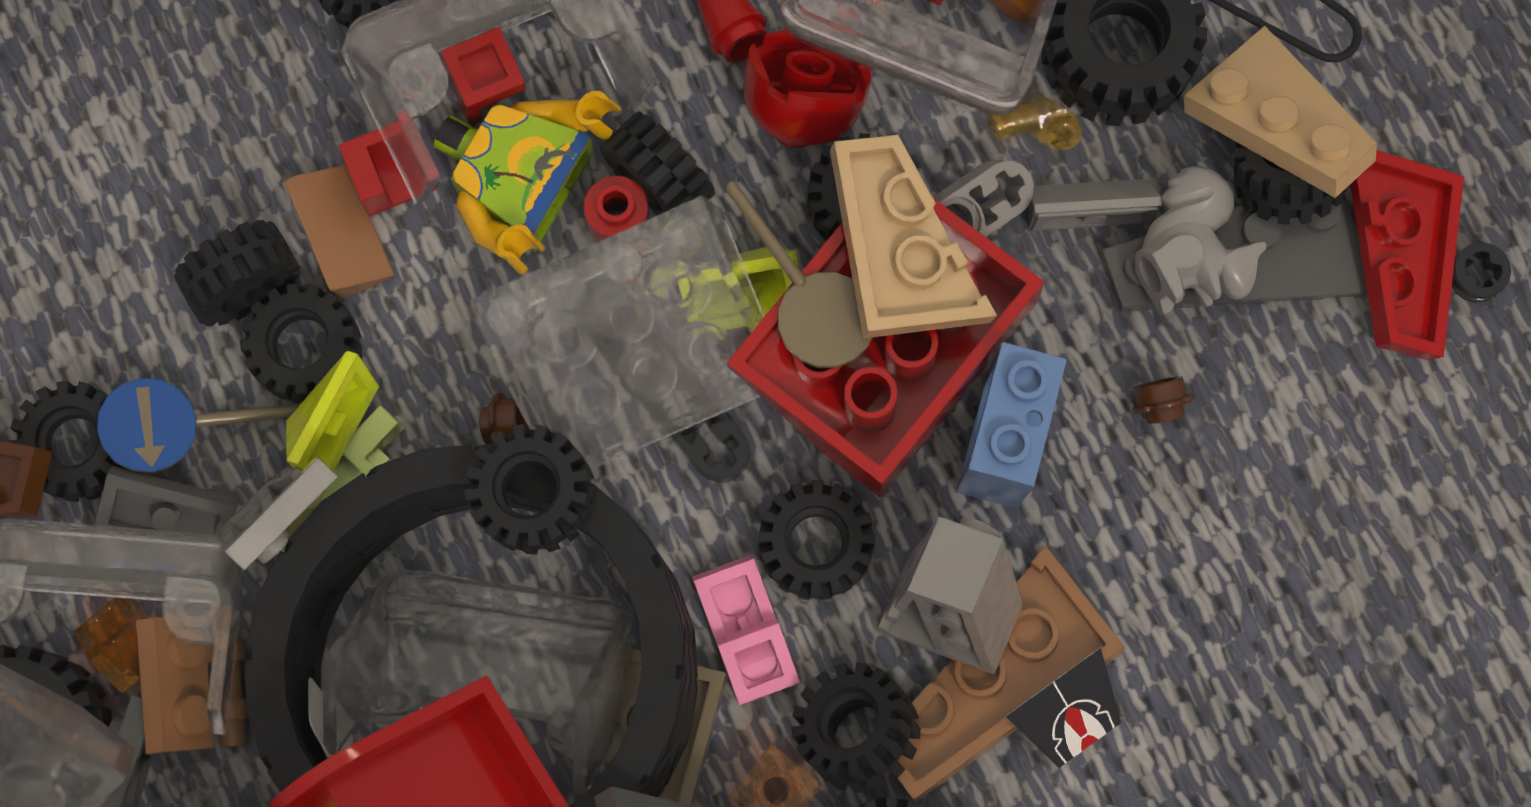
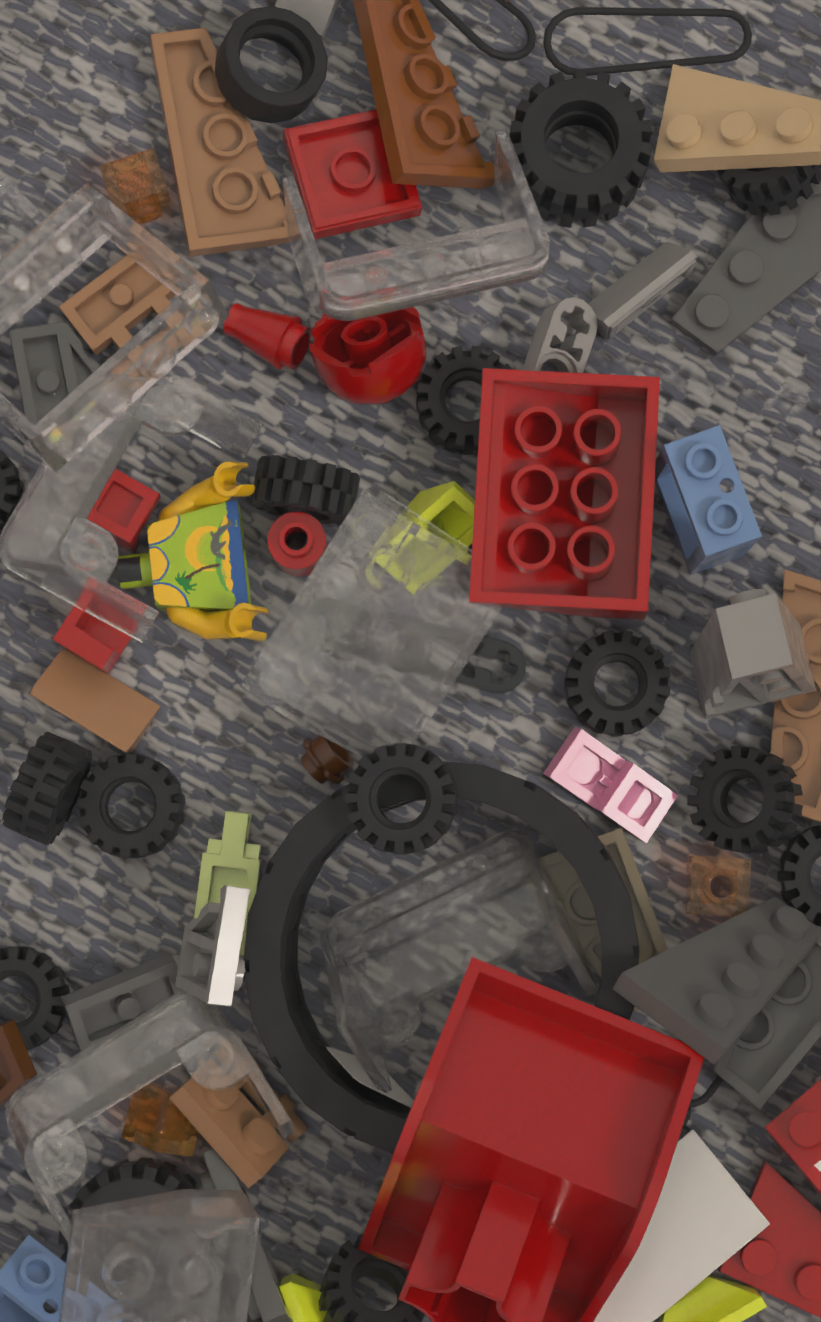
camera: 30 degrees left, 5 degrees up
(152, 424) = (67, 945): blue piece -> none
(330, 414) = (195, 847): neon yellow slope -> none
(819, 311) = (515, 517): dark tan piece -> none
(898, 251) = (540, 430): tan wing -> none
(1041, 120) = (567, 250): clear yellow arm -> none
(1162, 399) = (793, 401): reddish brown plate -> none
(1185, 251) = (737, 278): light grey animal -> none

